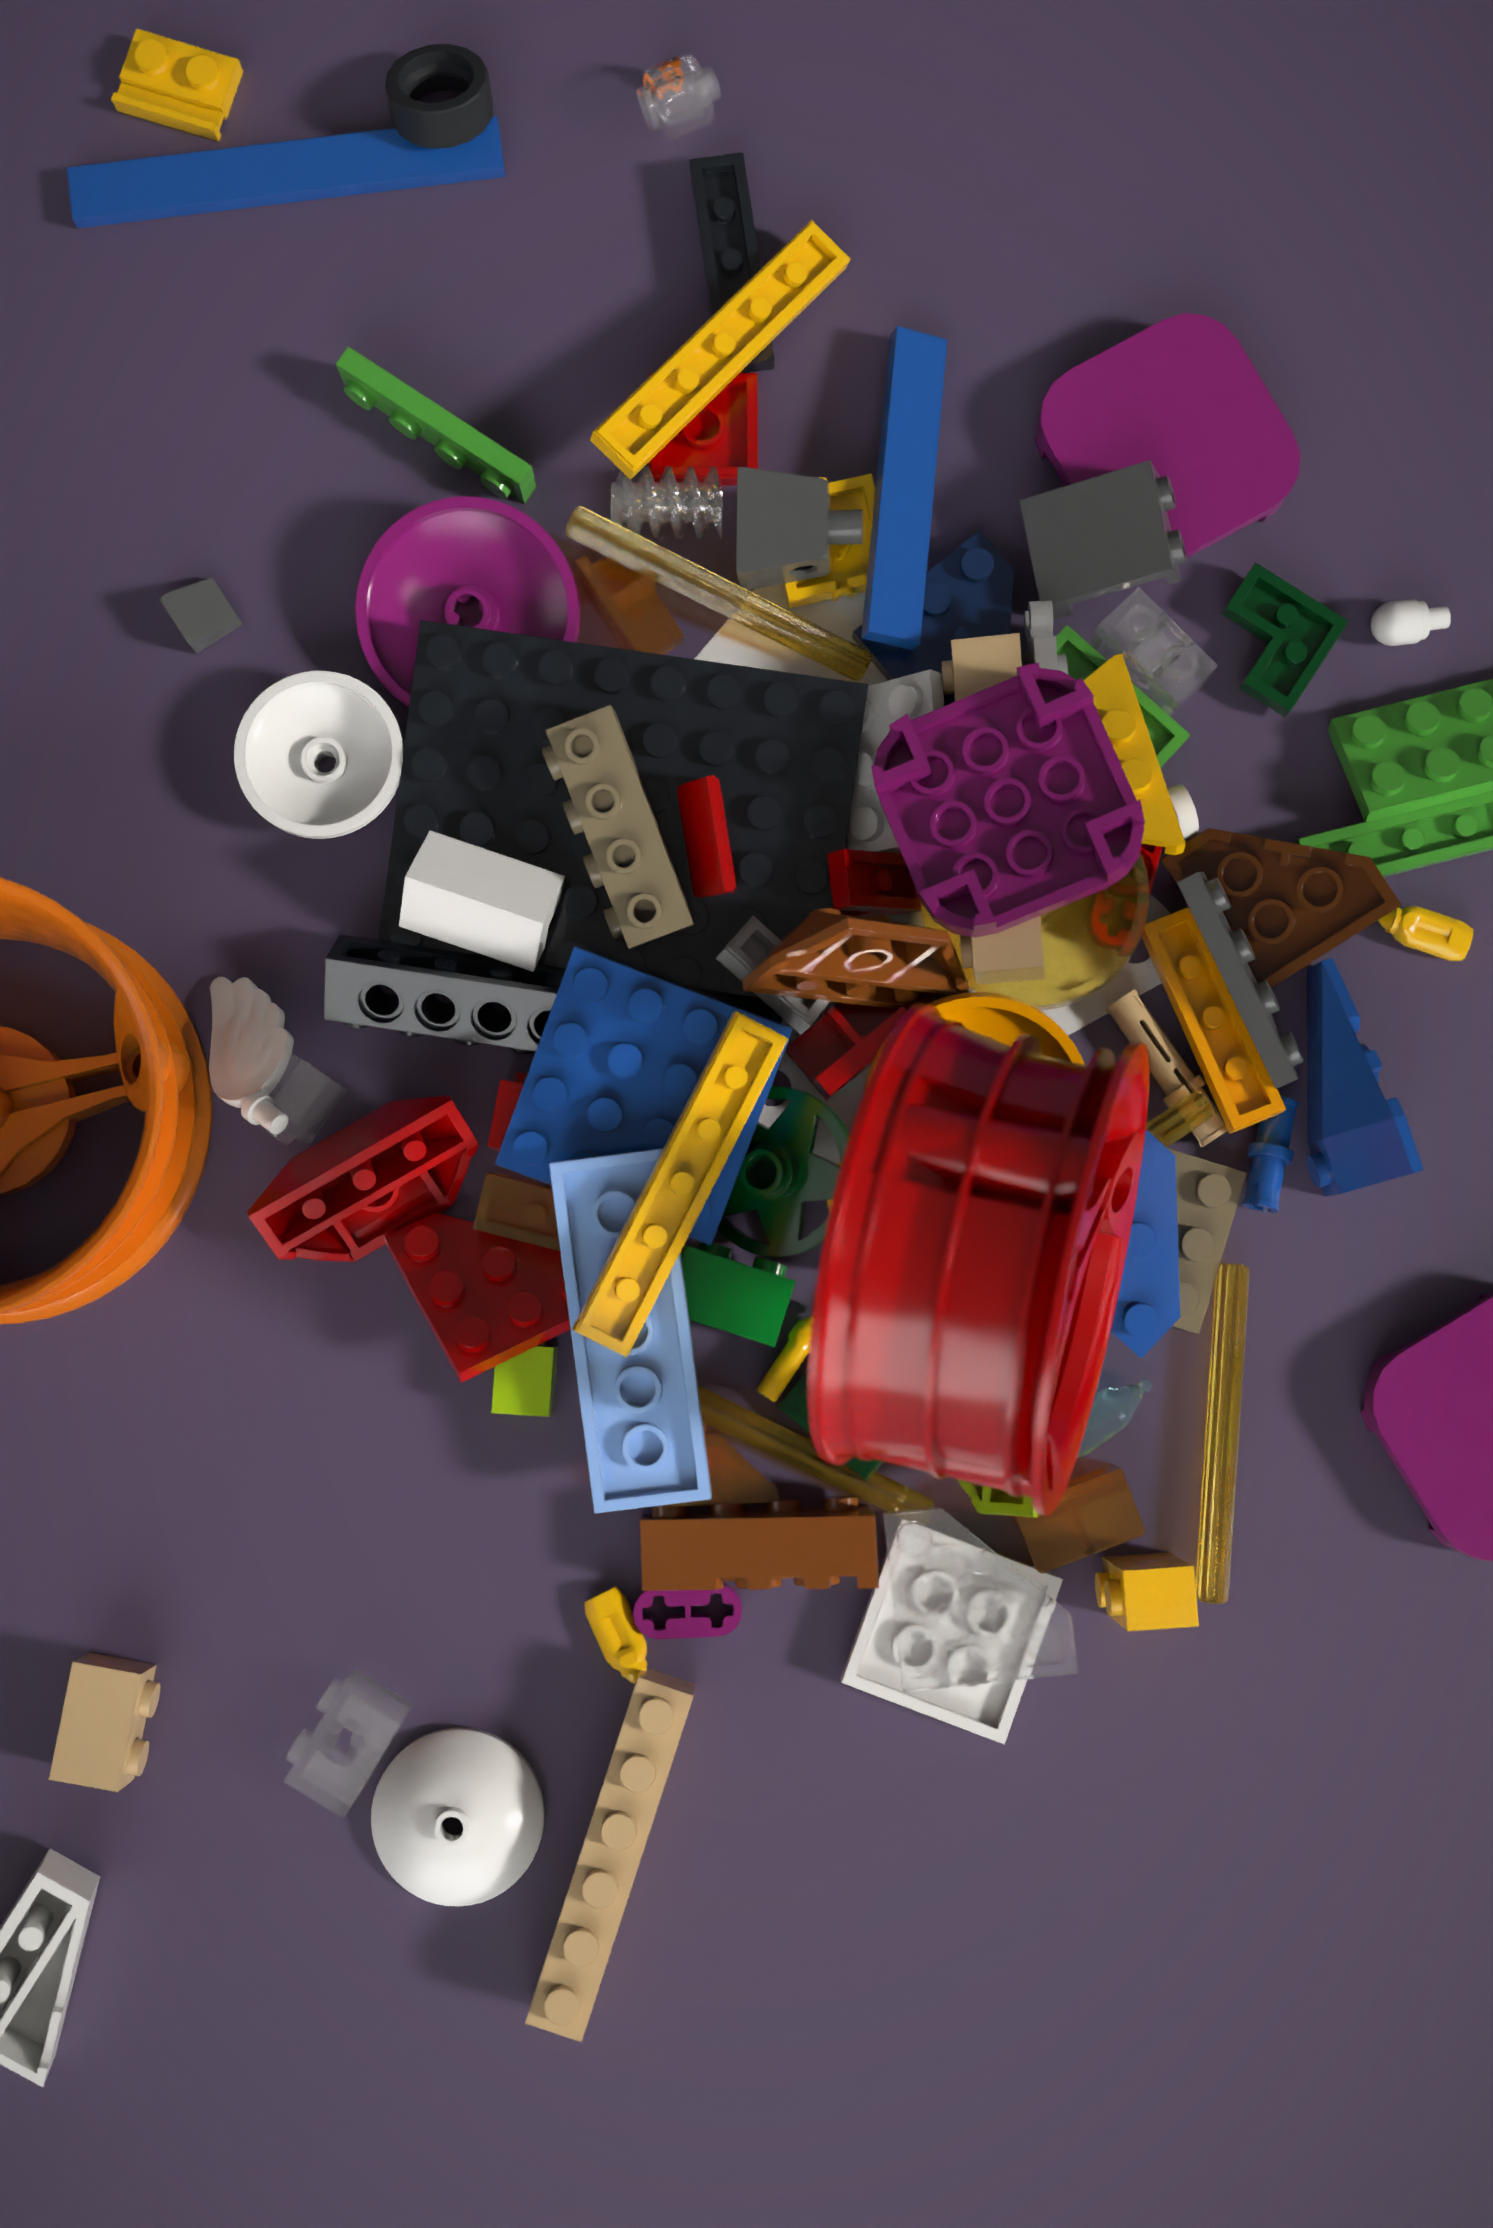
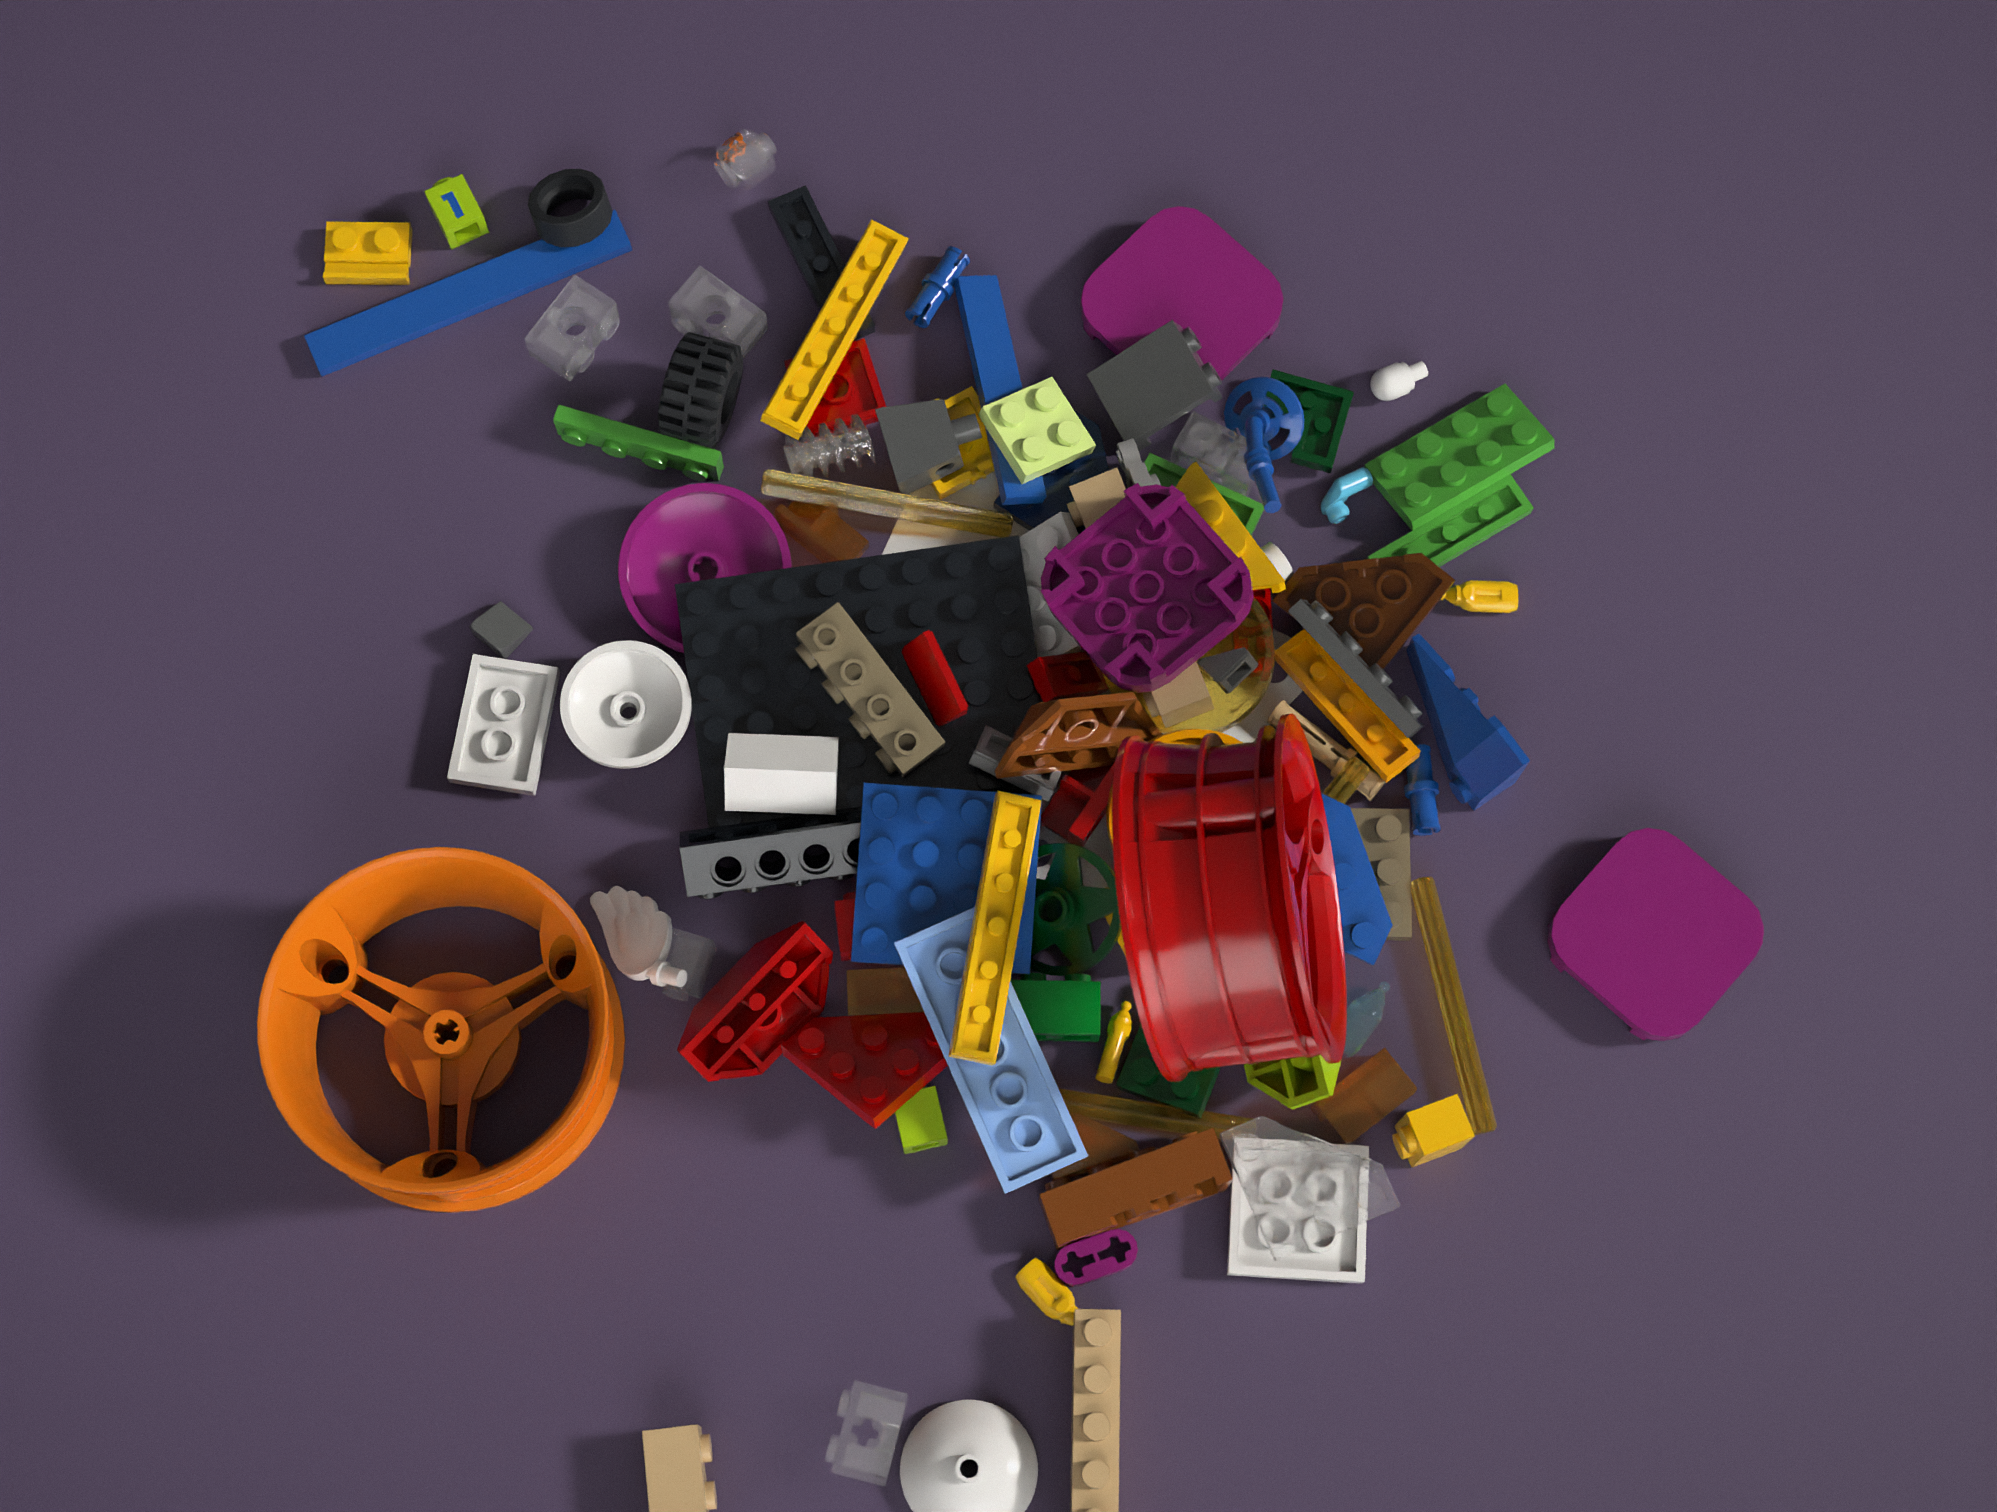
camera: 15 degrees left, 10 degrees down
(168, 734) = (503, 725): none -> white plate
(299, 60) = (456, 211): none -> lime brick
(404, 226) = (575, 305): none -> clear brick
(527, 377) = (700, 389): none -> black tyre
(574, 261) = (707, 295): none -> clear brick
(868, 333) = (937, 287): none -> blue pin
(934, 554) = (1037, 430): none -> yellowish green plate
(1079, 935) = (1229, 668): none -> dark grey slope
(1217, 630) = (1262, 424): none -> blue dish
(1294, 741) = (1341, 489): none -> medium azure arm

